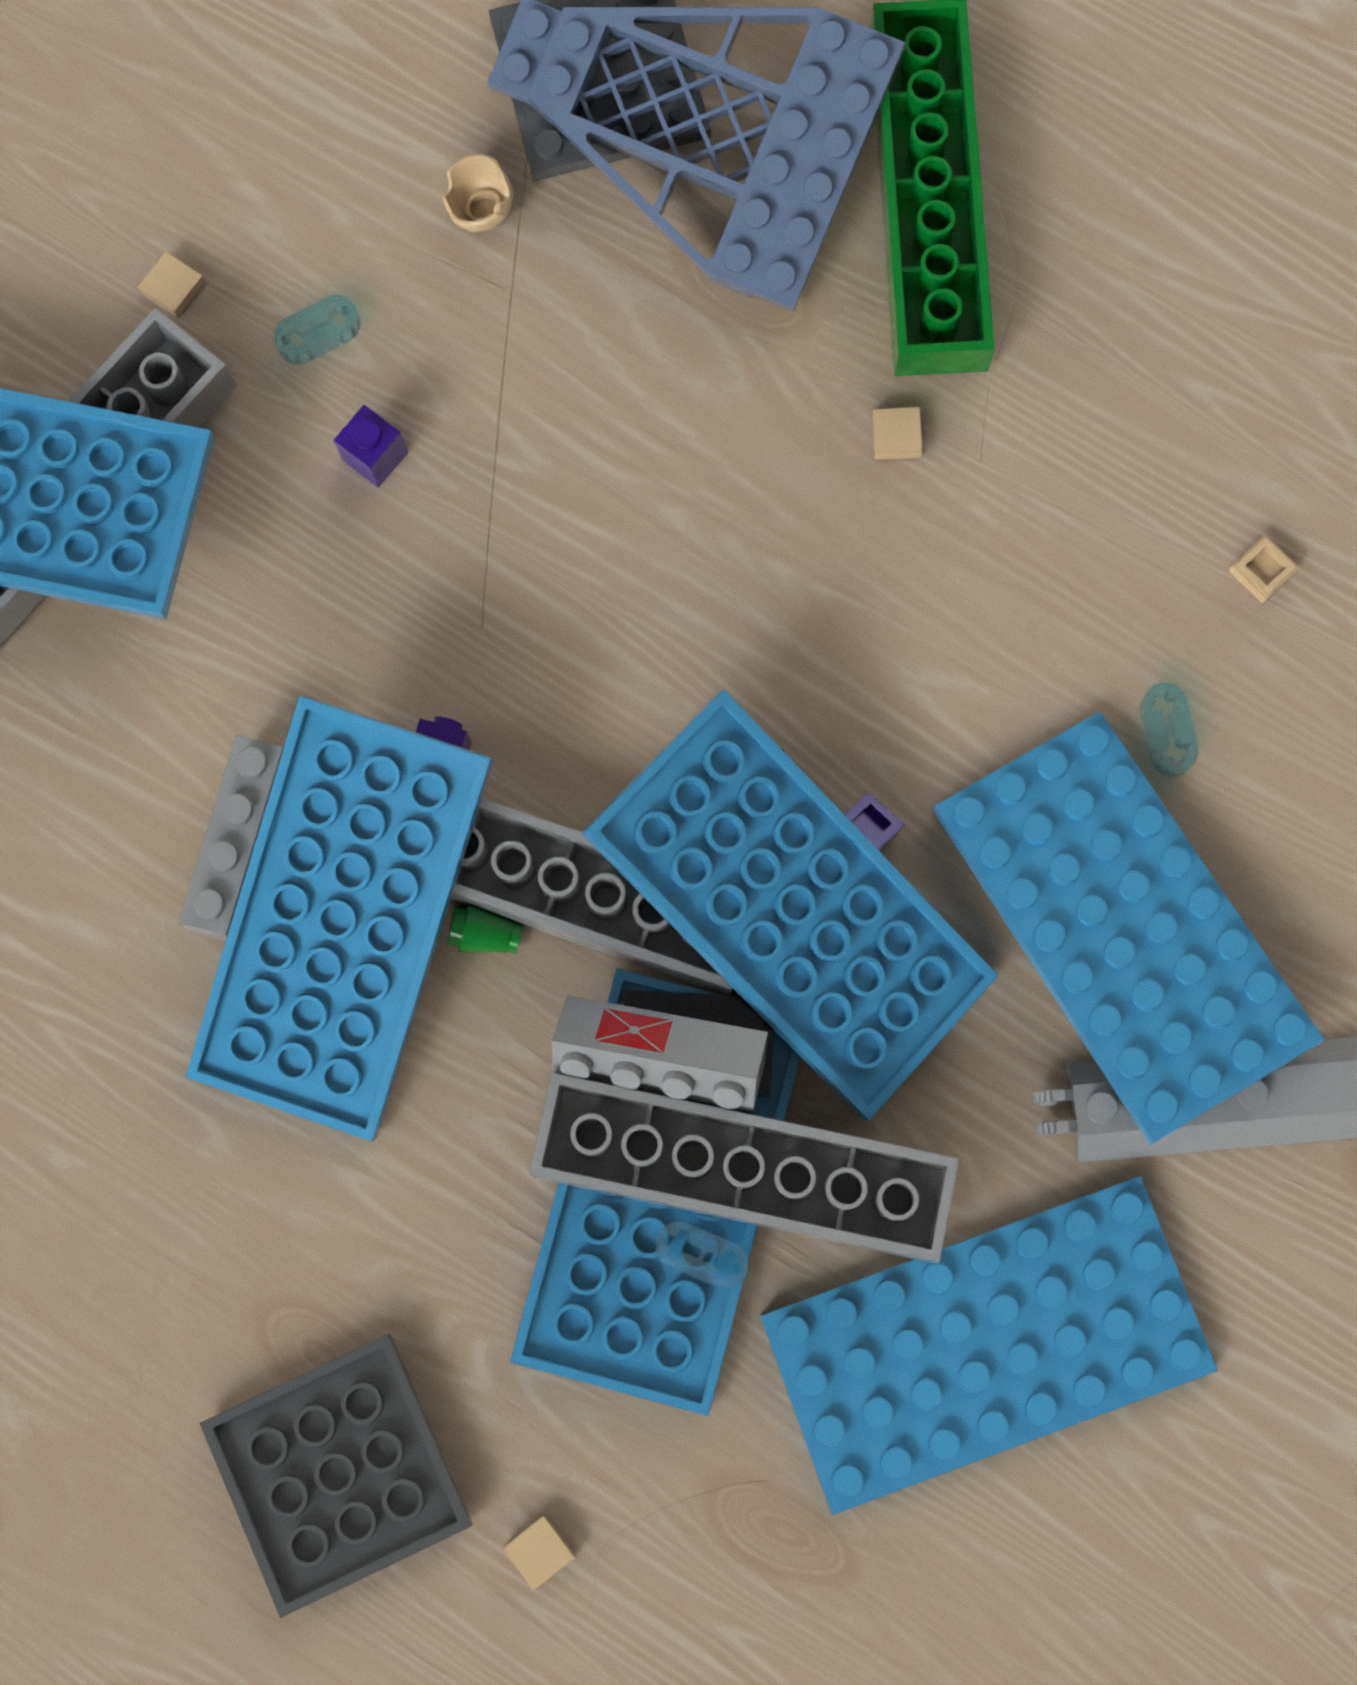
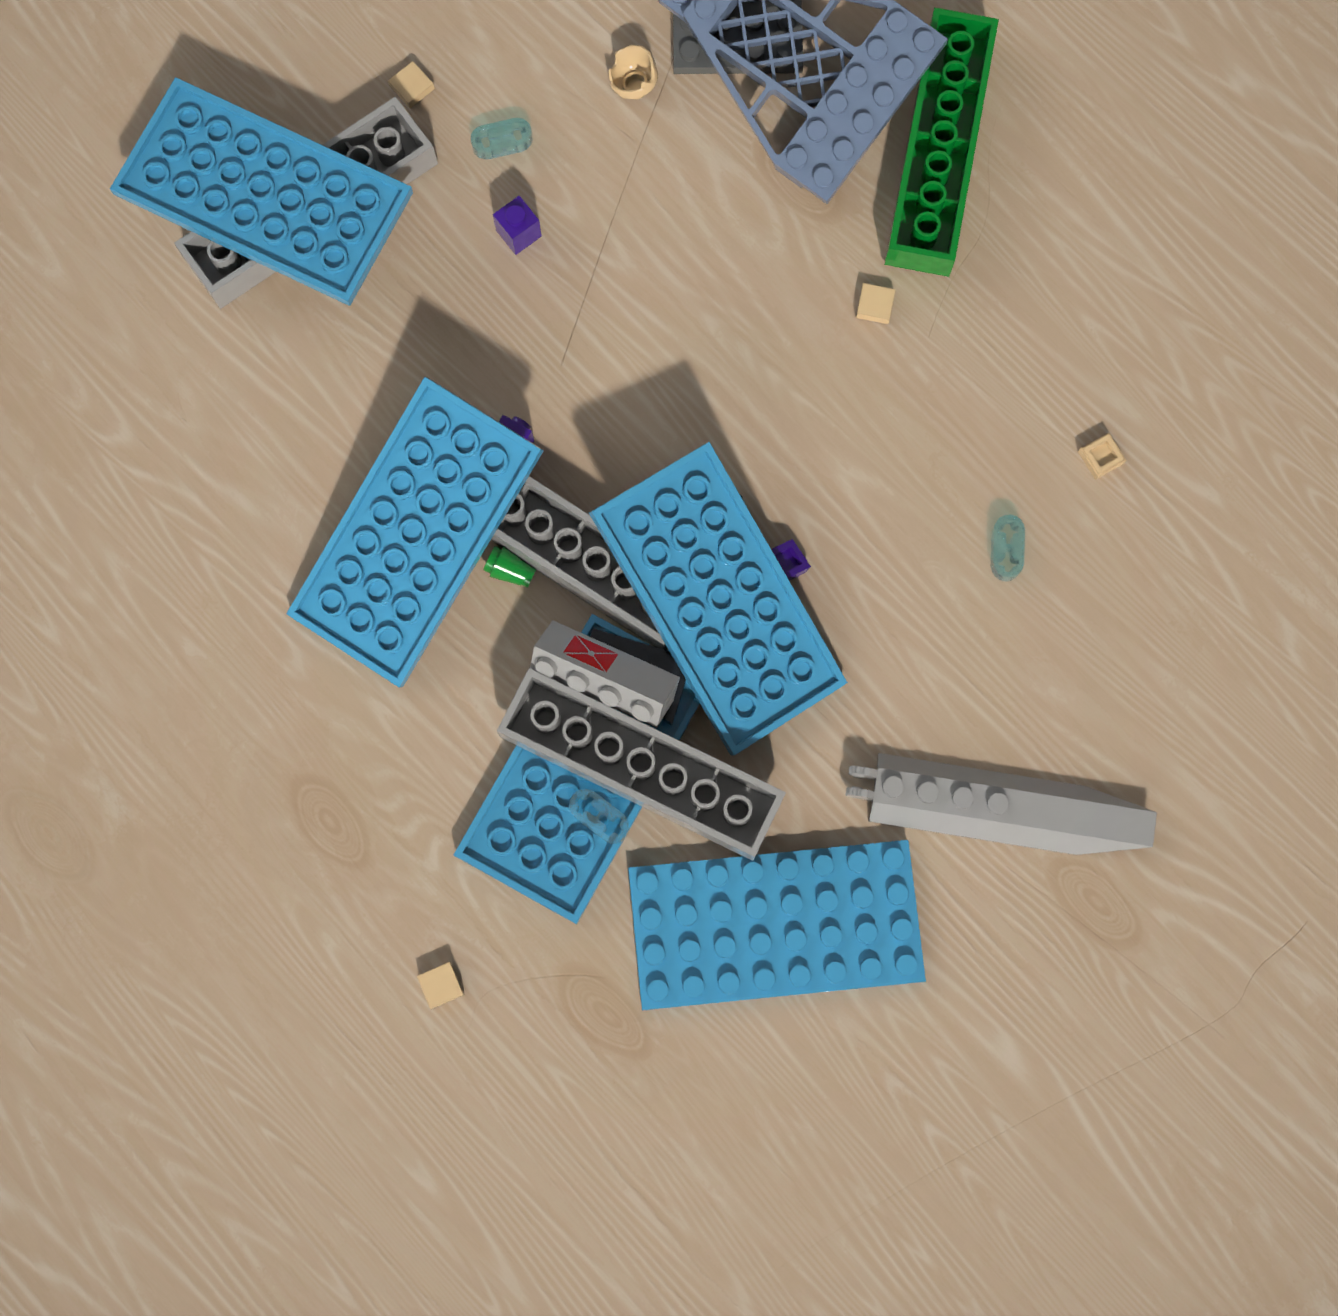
camera: 10 degrees right, 0 degrees up
(230, 838) = (355, 463): light grey brick -> none
(335, 1475) = (319, 899): dark grey plate -> none
(1127, 927) = (942, 671): dark azure plate -> none

